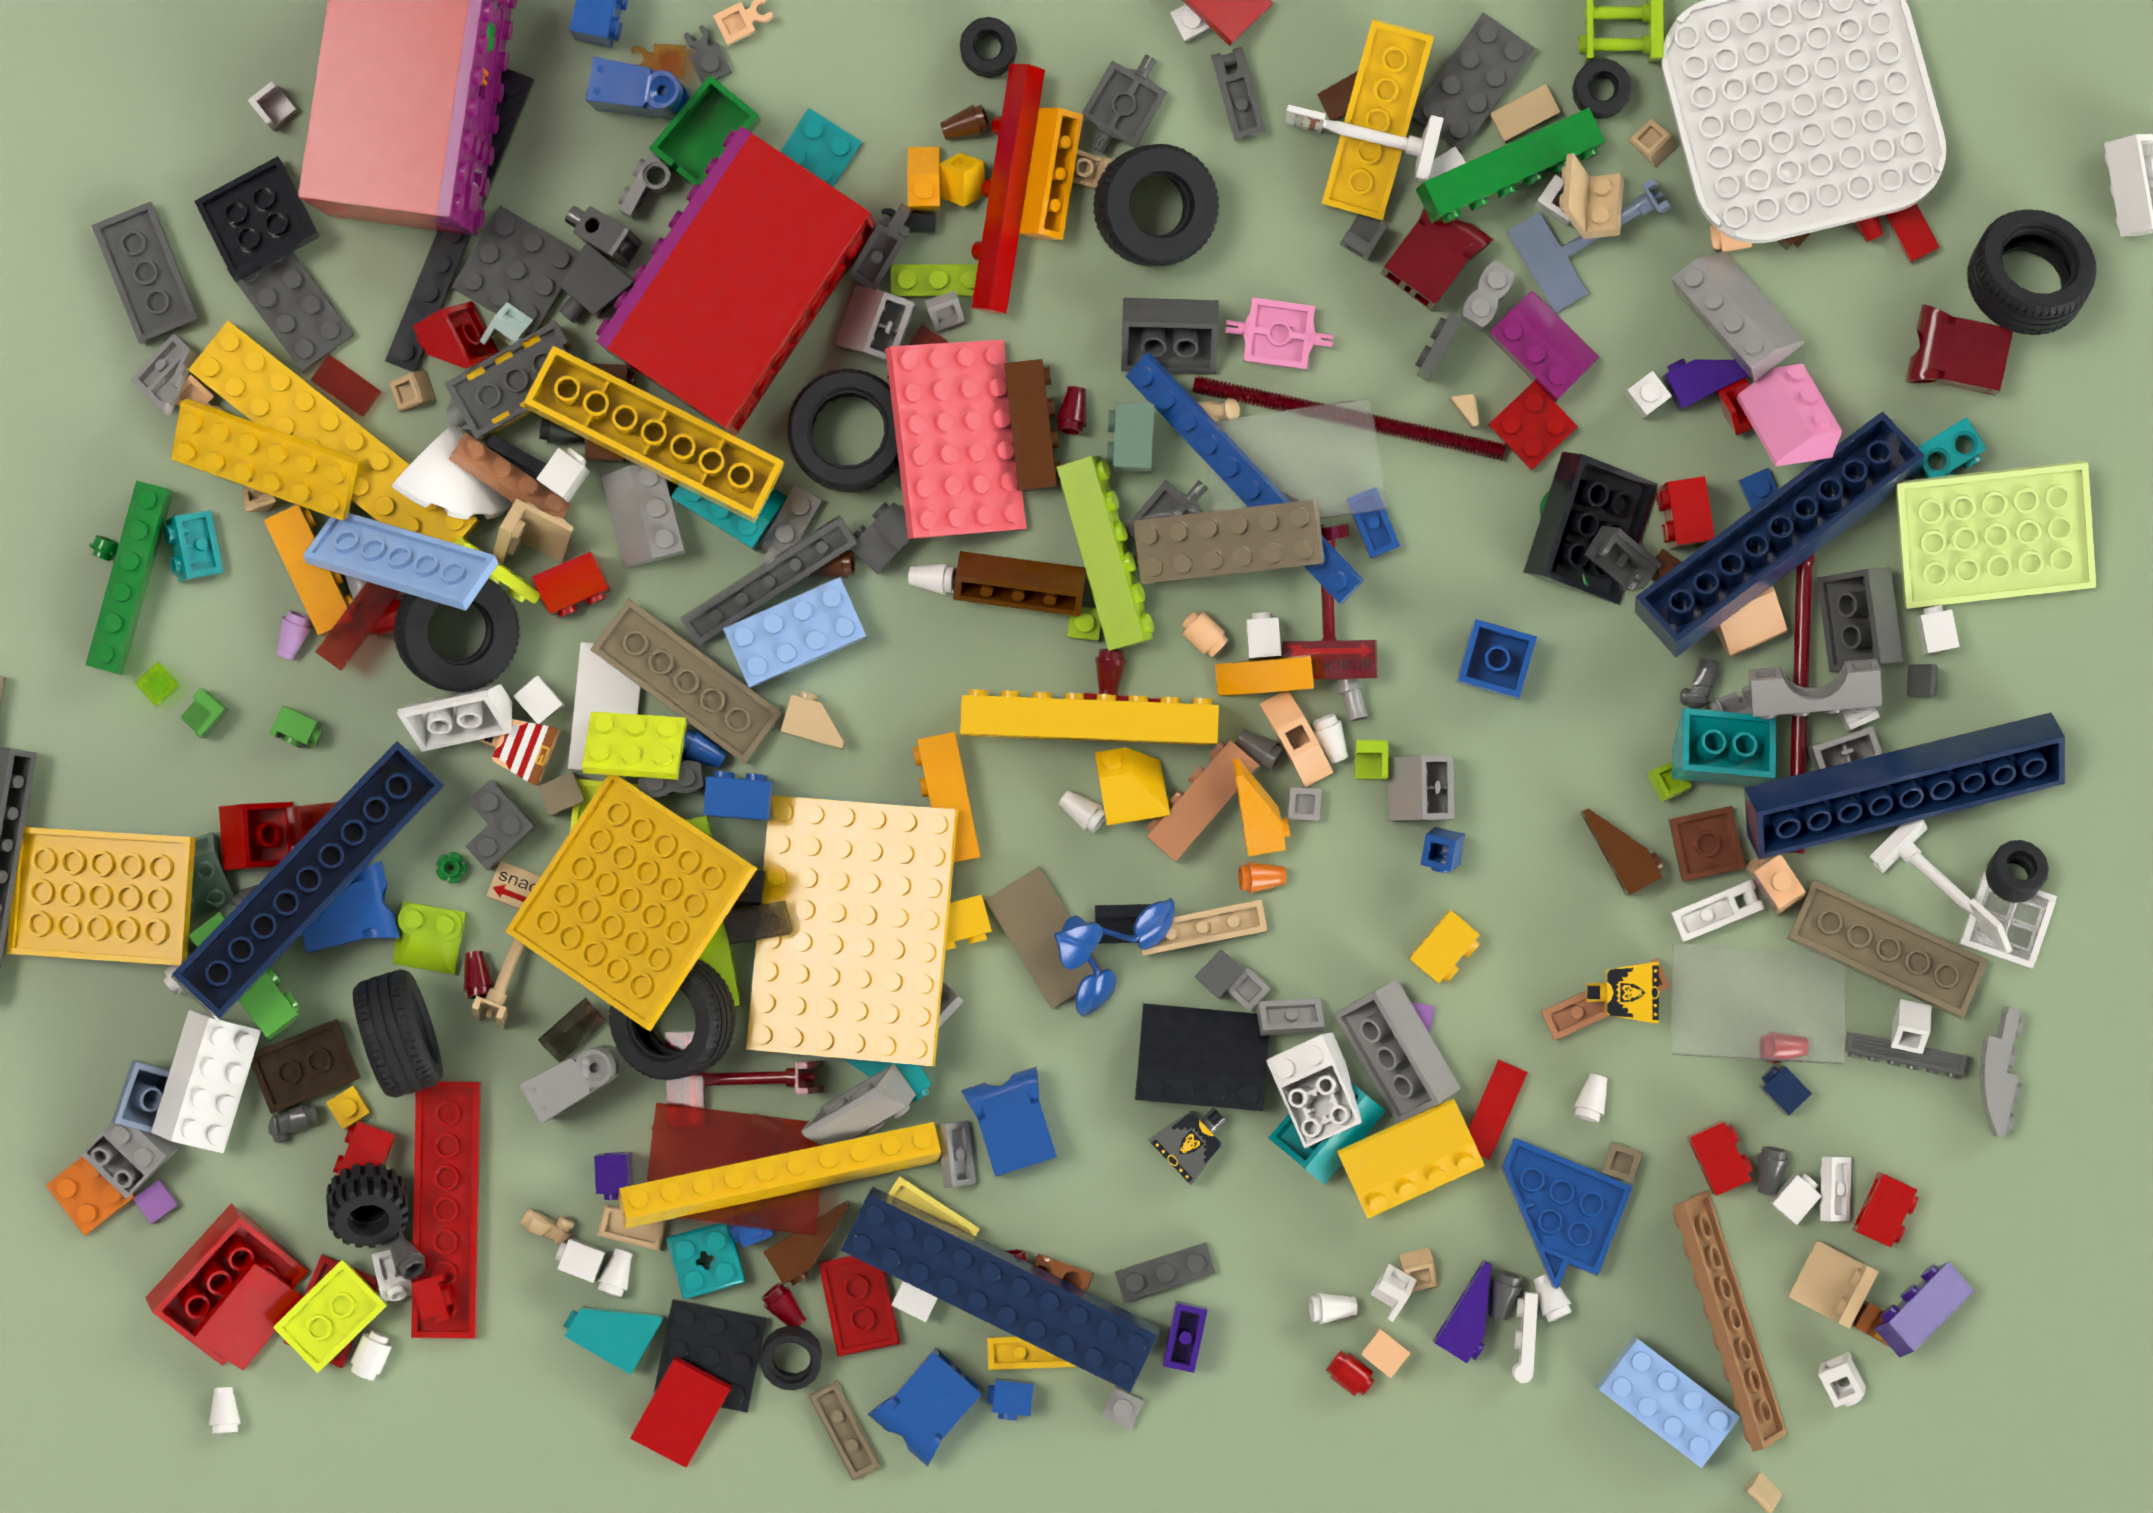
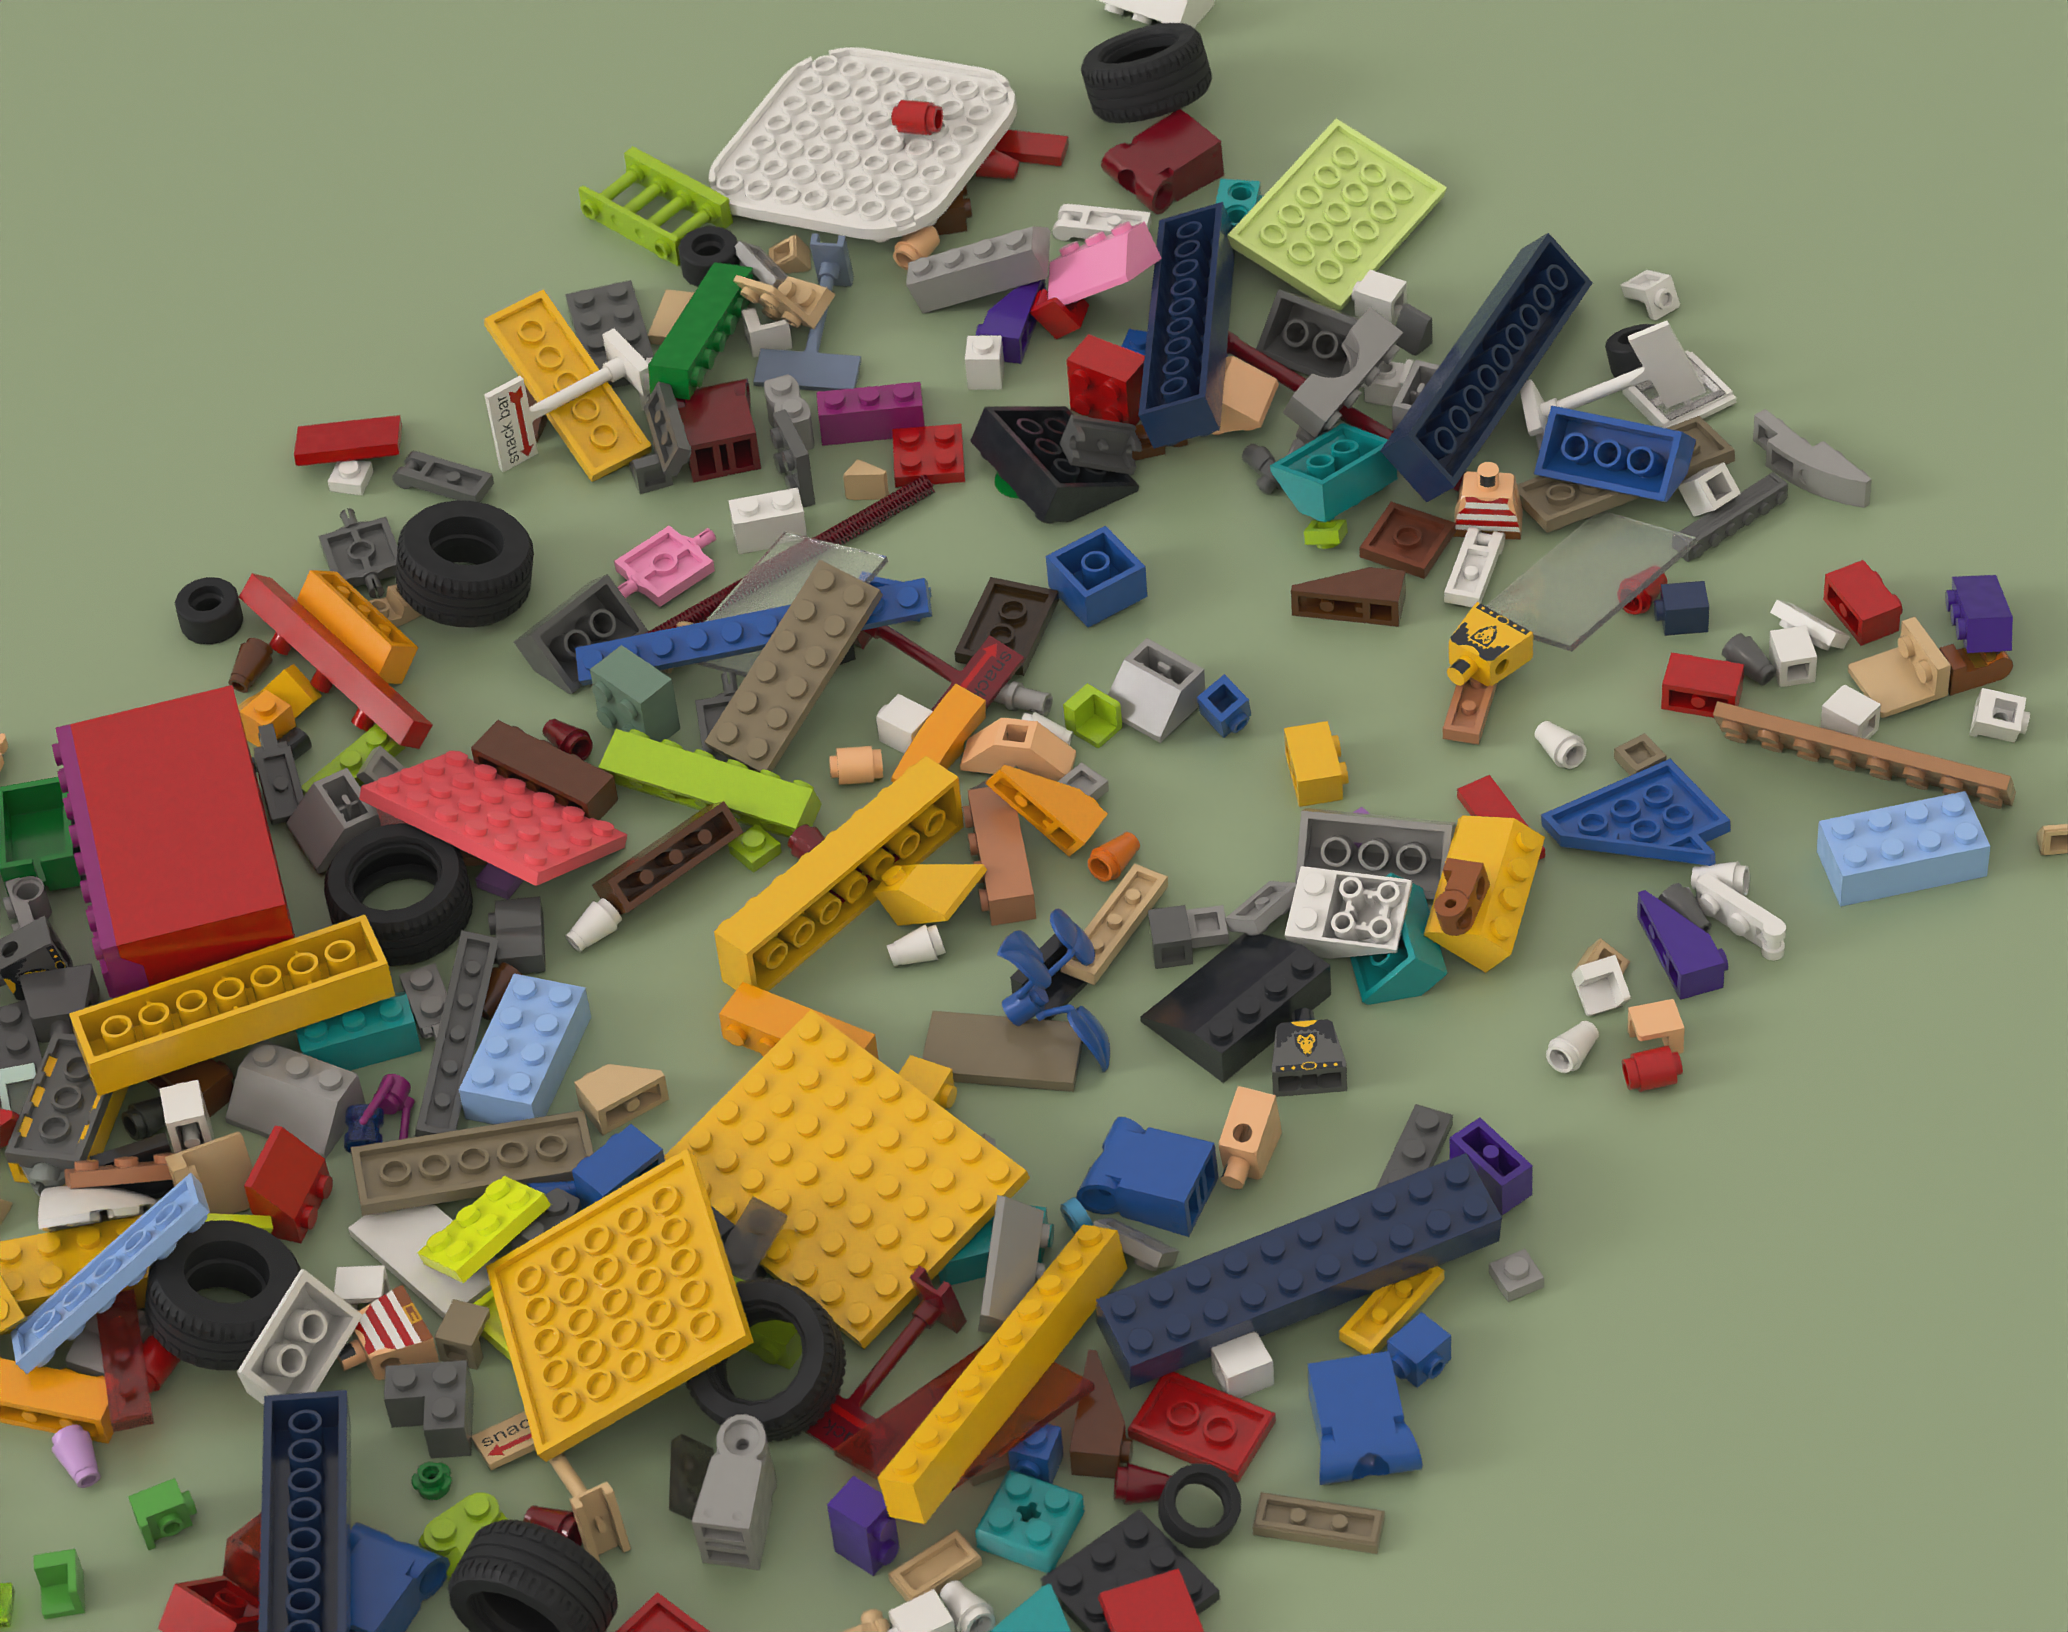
camera: 45 degrees left, 40 degrees down
(656, 584) = (362, 1134): none -> clear blue wheel
(697, 574) = (392, 1097): none -> magenta plant
(947, 1101) = (1075, 1214): none -> dark azure tile
(1097, 1162) = (1249, 1136): none -> light nougat torso
(1373, 373) = (765, 517): none -> white brick
(1379, 1164) = (1462, 896): none -> dark orange leg
(1388, 237) = (667, 429): none -> dark grey plate
(1411, 626) = (1011, 614): none -> dark brown plate
(1619, 142) = (763, 266): none -> light grey plate
(1765, 1280) = (1851, 713): none -> white panel
(1841, 143) = (917, 117): none -> red brick
(1863, 355) = (1085, 221): none -> white plate
(1886, 941) = (1614, 454): none -> blue slope
(2097, 825) = (1655, 291): none -> white bracket

